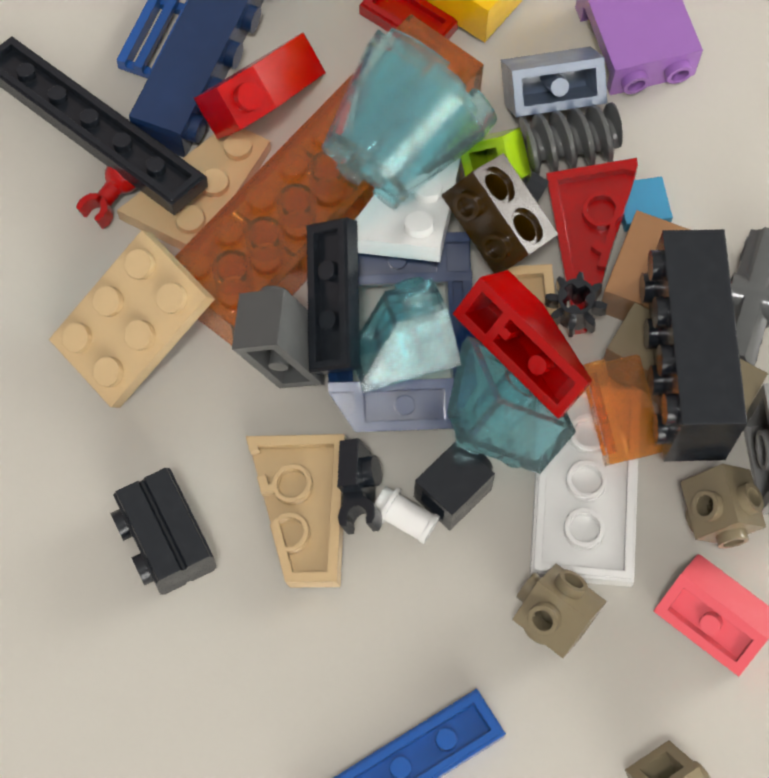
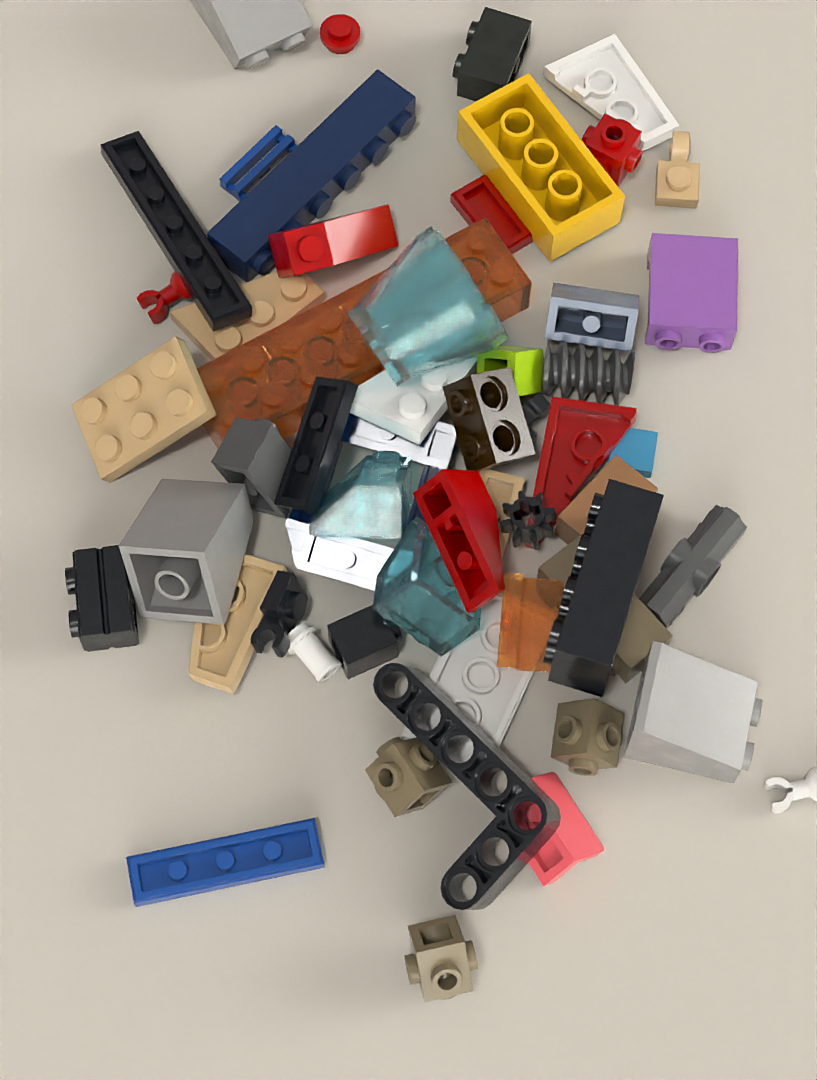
camera: 20 degrees right, 0 degrees up
(237, 451) = (188, 550): none -> light grey slope
(633, 585) = (477, 777): none -> black beam

